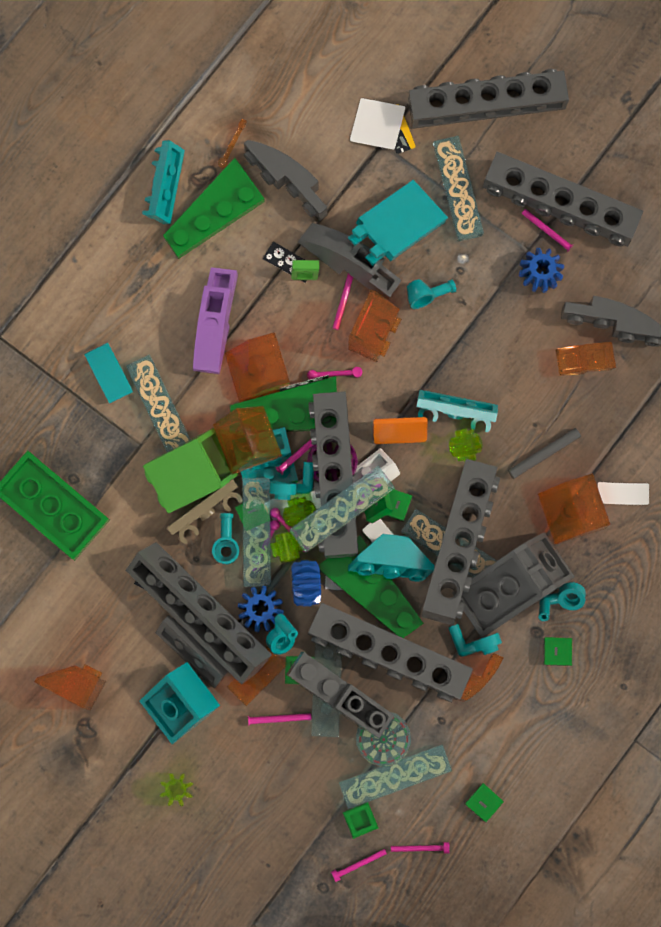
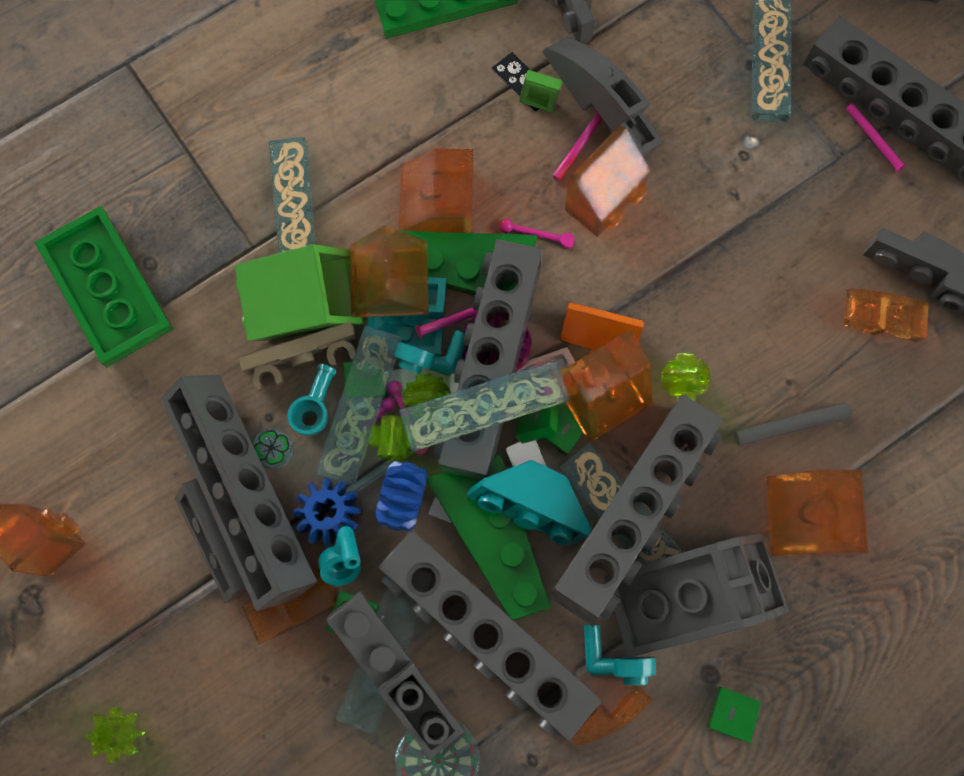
camera: 20 degrees right, 5 degrees down
(108, 372) = (243, 144): teal slope -> none
(179, 702) = (168, 607): teal slope -> none
(208, 578) = (273, 448): none -> tile
(213, 320) = (398, 117): medium lavender slope -> none
(279, 718) = (299, 677): dark pink piece -> none
(304, 383) = (491, 229): sticker -> none
(398, 222) = (680, 67): teal tile -> none
(415, 467) = (608, 384): none -> clear orange slope
(421, 294) = (684, 167): teal bar -> none
(457, 408) = (689, 326): teal plate -> none
(543, 260) = (856, 182): blue gear -> none
(564, 598) = (768, 642): teal plate -> none
(624, 493) = (896, 516): white sticker -> none

